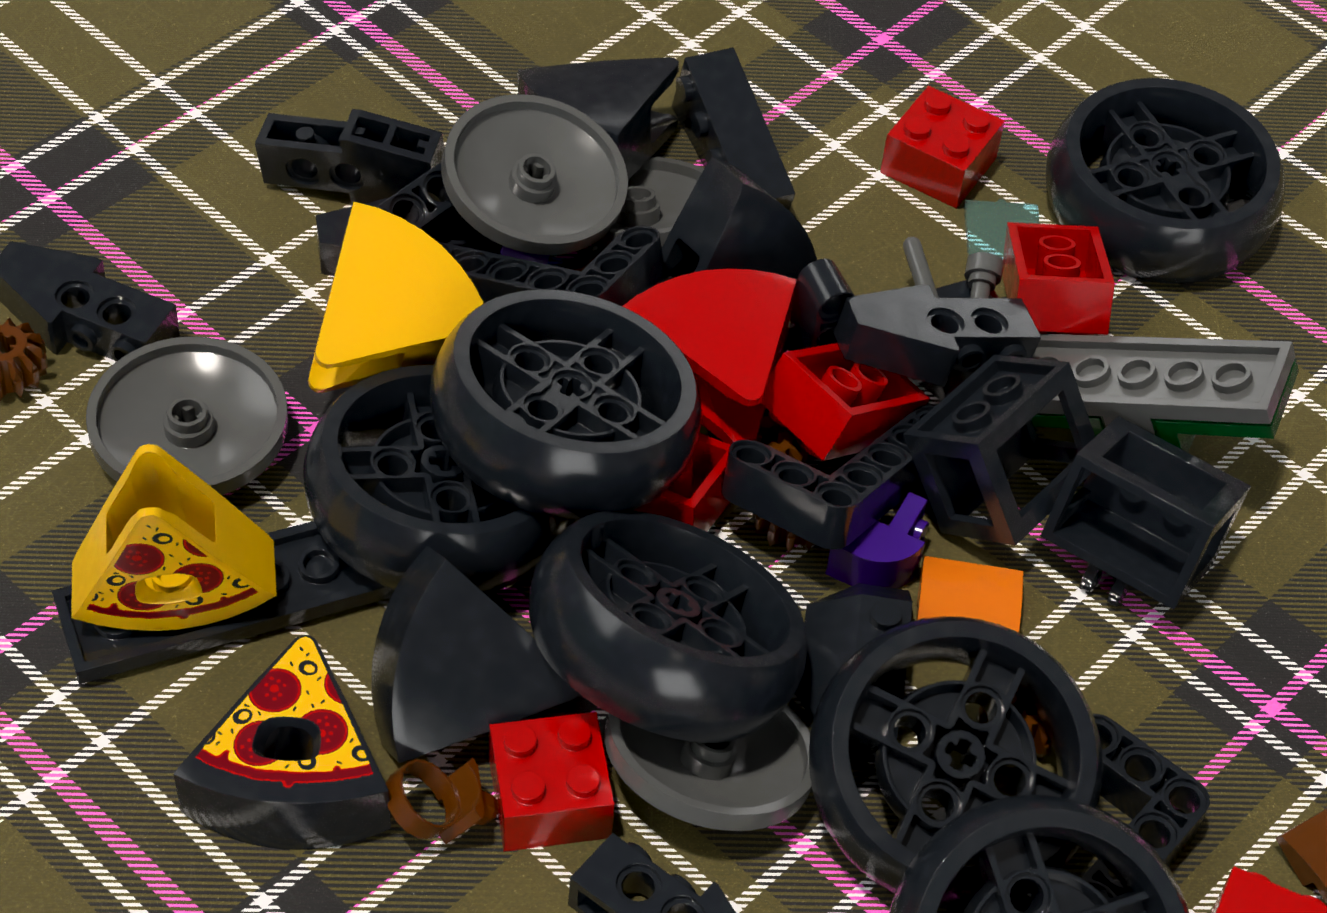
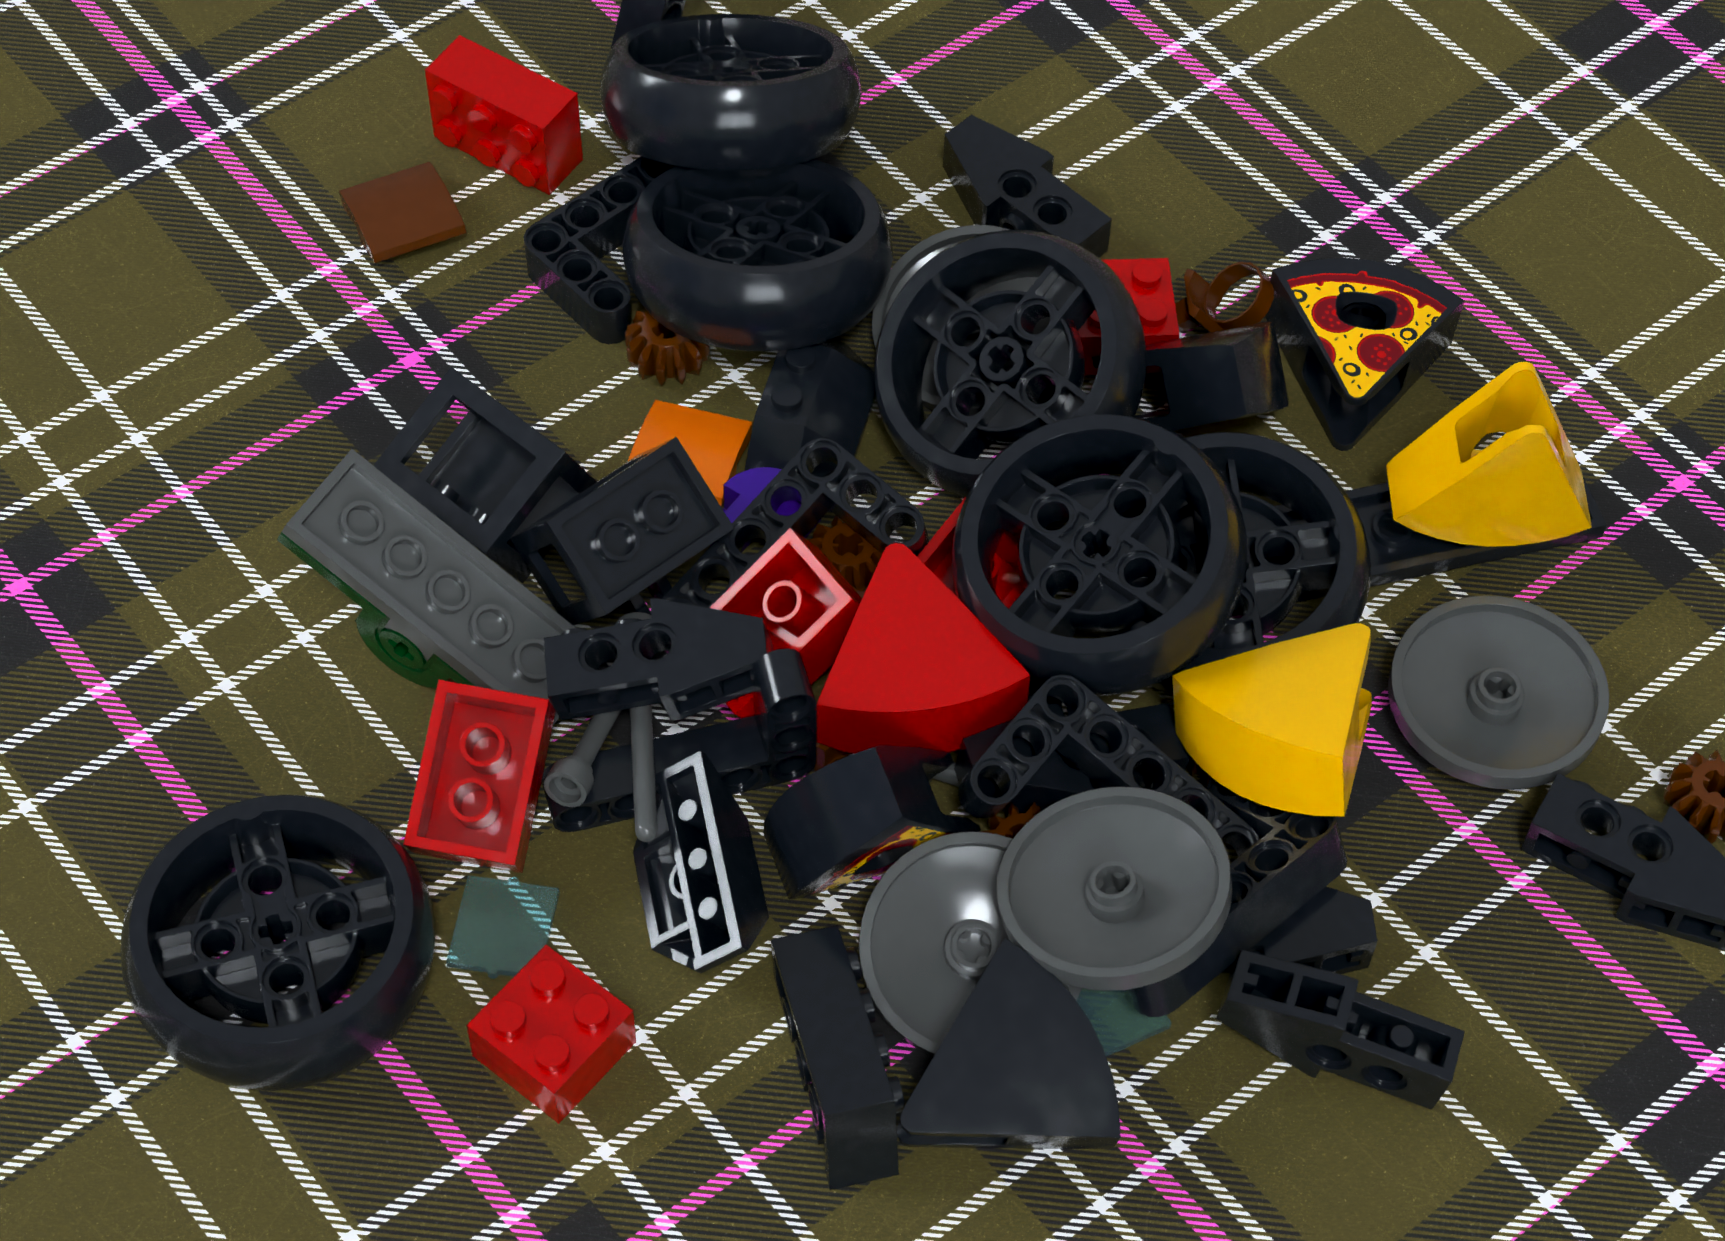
camera: 170 degrees left, 5 degrees up
(851, 231) = (700, 870): none -> black wedge

